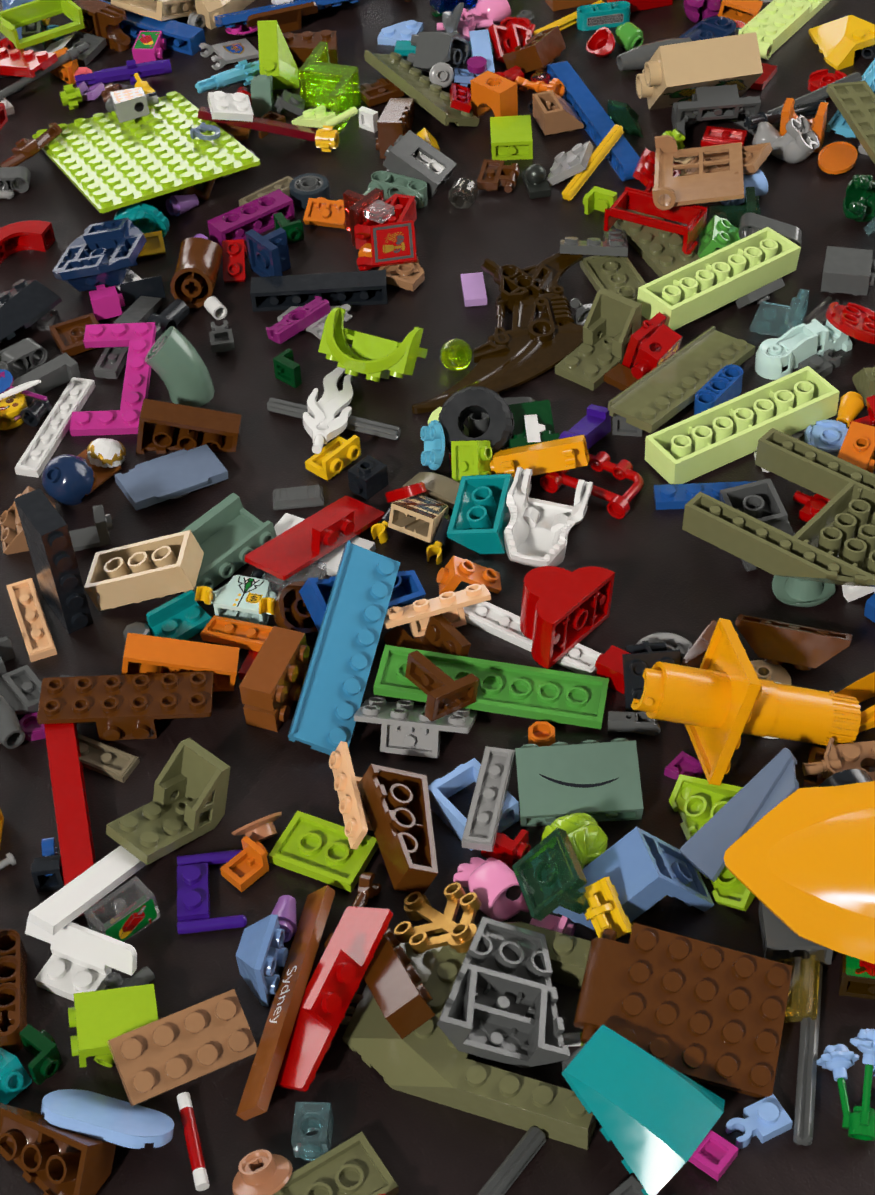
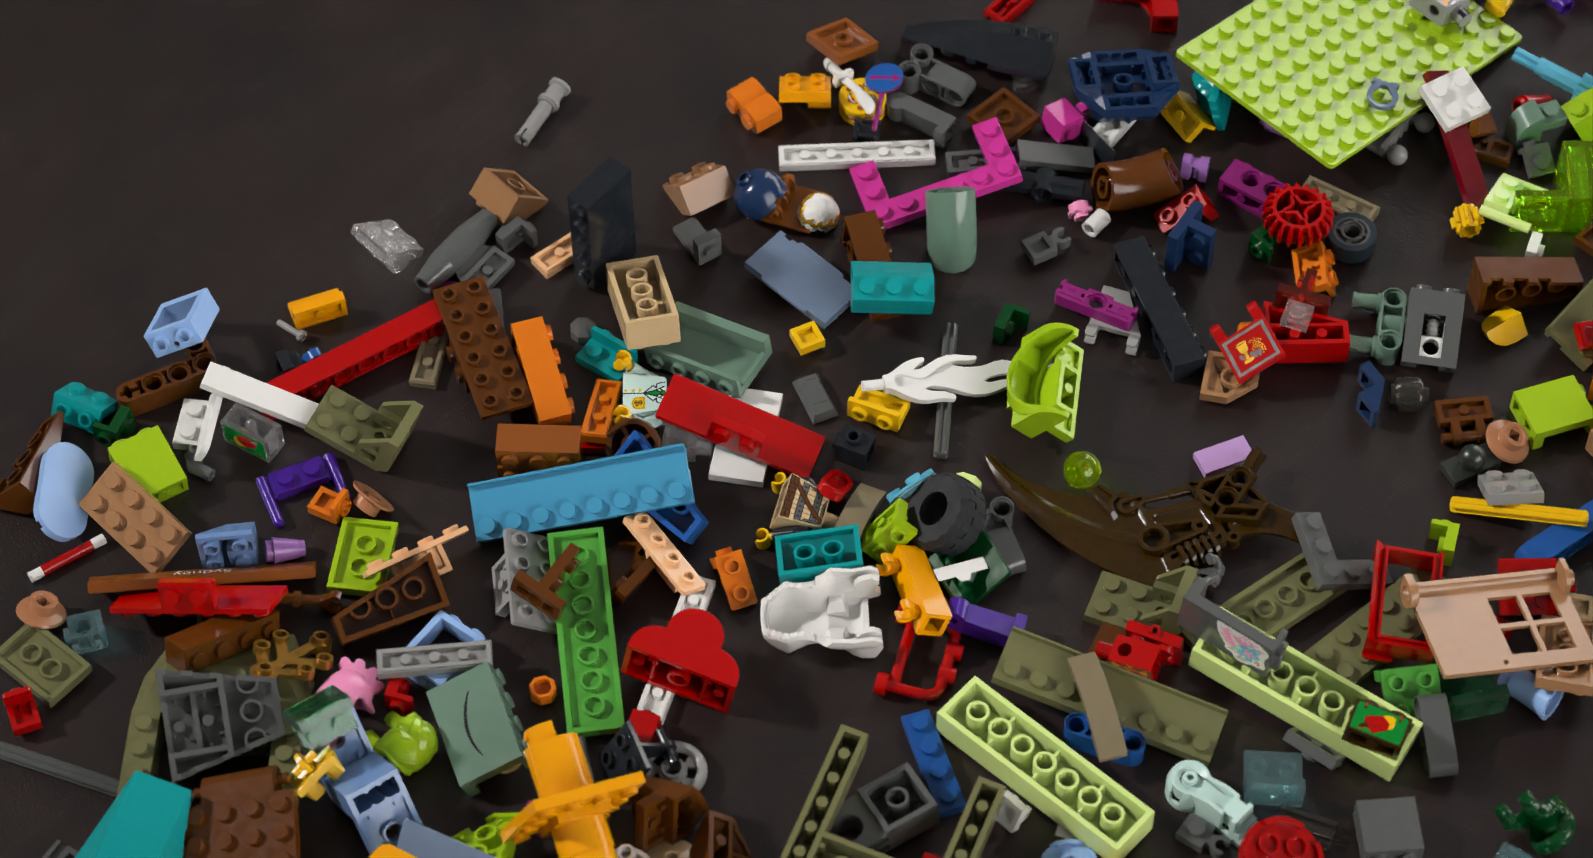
camera: 70 degrees right, 10 degrees up
(198, 313) = (1079, 210): none -> bright pink plate
(226, 409) = (892, 287): none -> teal slope
(235, 484) = (807, 338): none -> yellow plate
(285, 195) = (1295, 221): none -> red gear
(451, 205) = (1369, 399): none -> dark blue slope
(524, 157) = (1507, 441): none -> nougat piece
(673, 275) = (1229, 632): none -> dark grey panel
(697, 370) = (1098, 706): none -> dark tan slope
(774, 239) = (1377, 729): none -> brick

